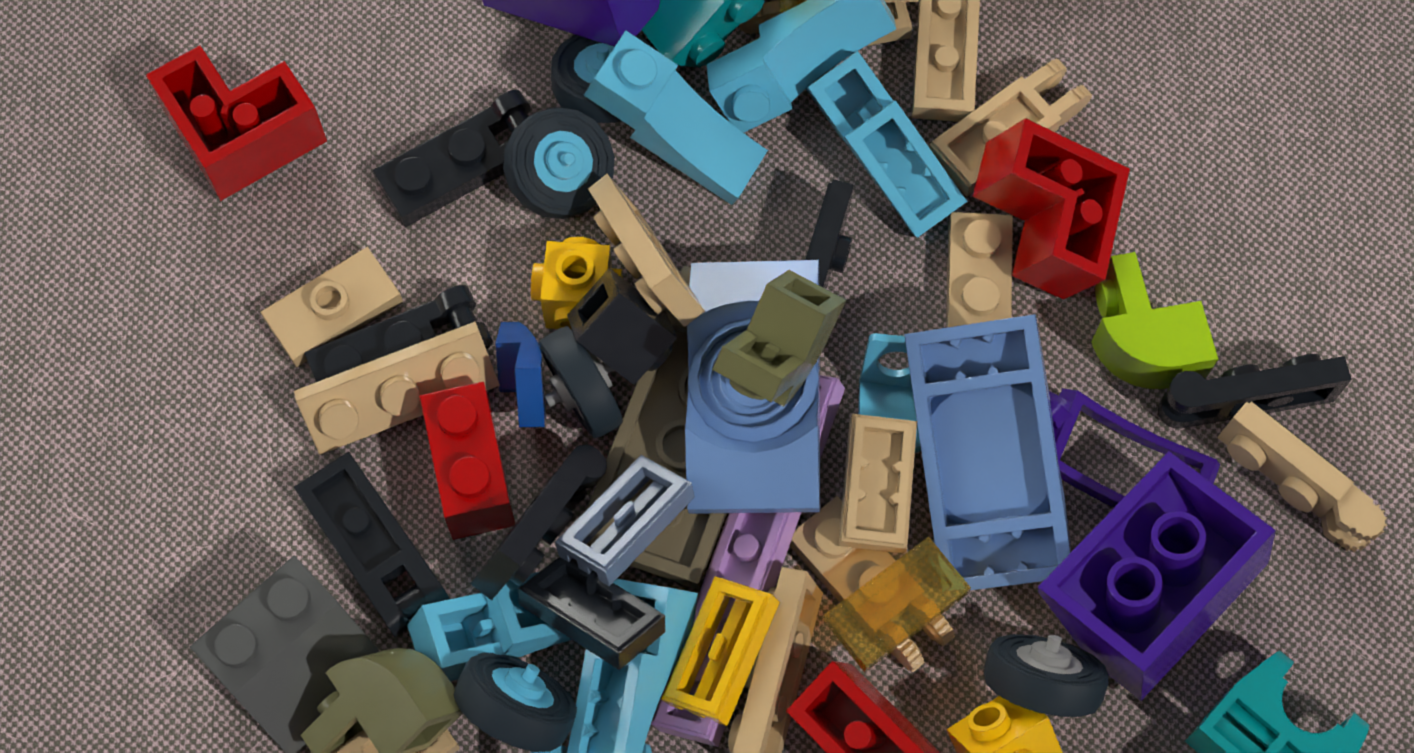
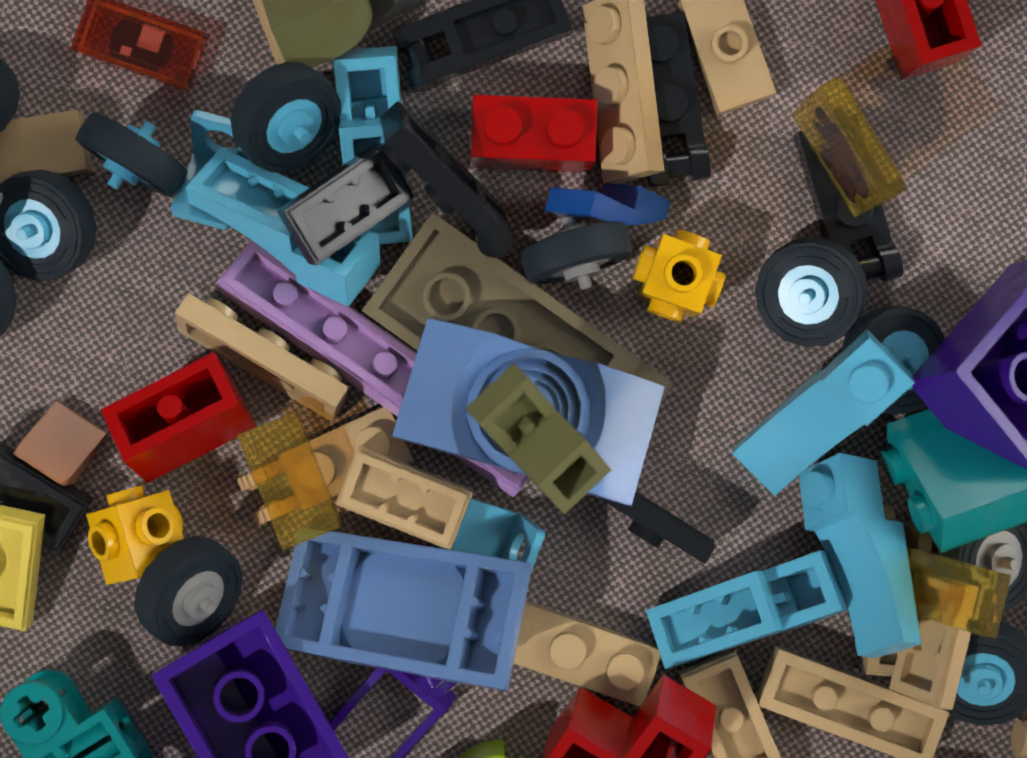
camera: 105 degrees right, 20 degrees up
(415, 147) = (848, 147): none -> clear yellow tile
(622, 327) = (611, 301): black brick -> none
(634, 522) = (406, 269): sand blue tile -> none
(643, 253) = (685, 344): tan plate -> none
(730, 654) = (274, 328): yellow tile -> none

